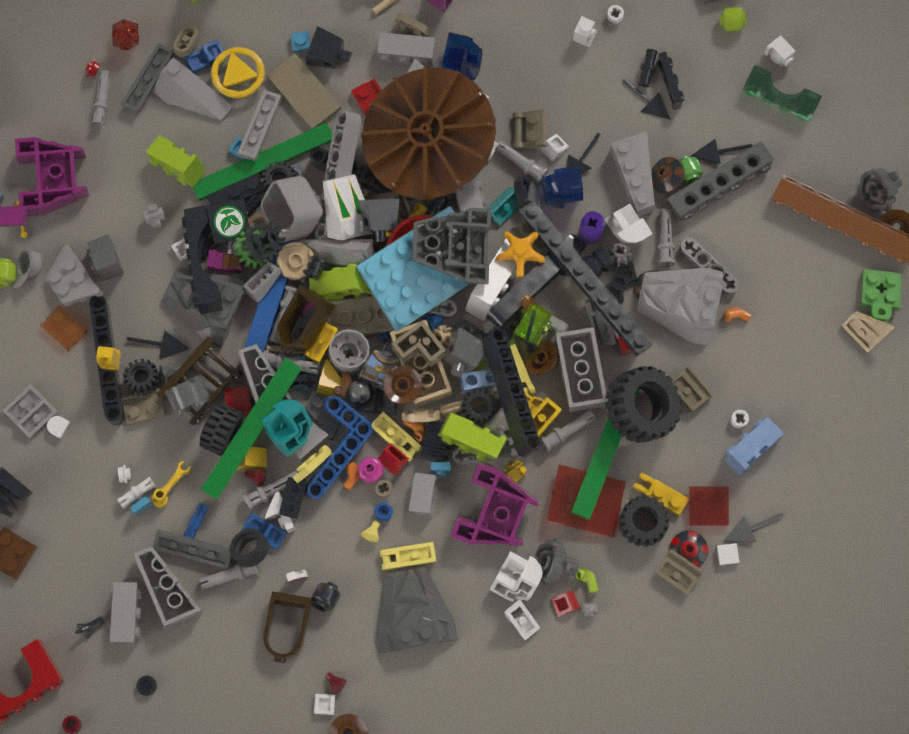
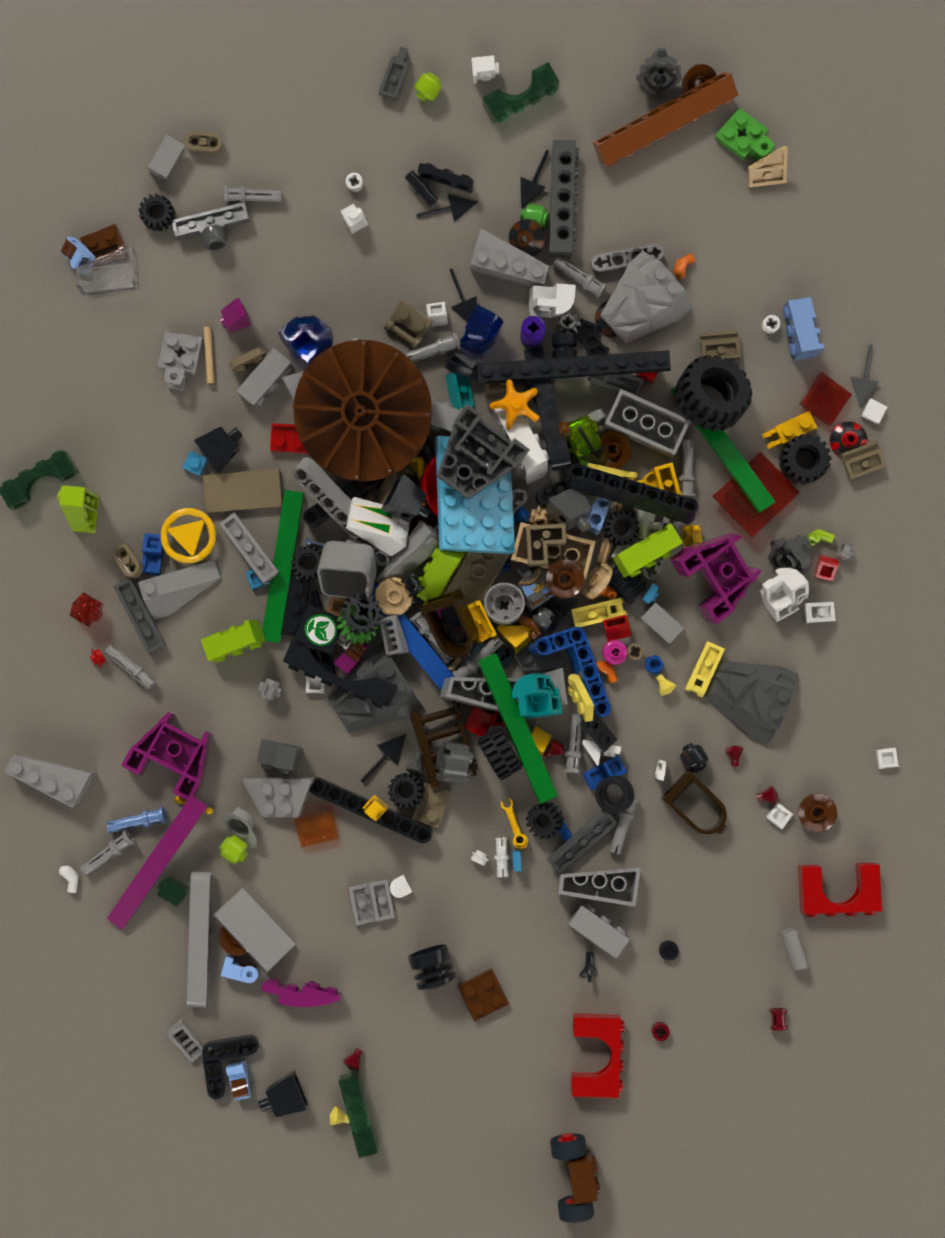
camera: 55 degrees left, 10 degrees up
(196, 511) = (537, 827): none -> black tyre
(353, 629) = (734, 753): none -> dark red rock

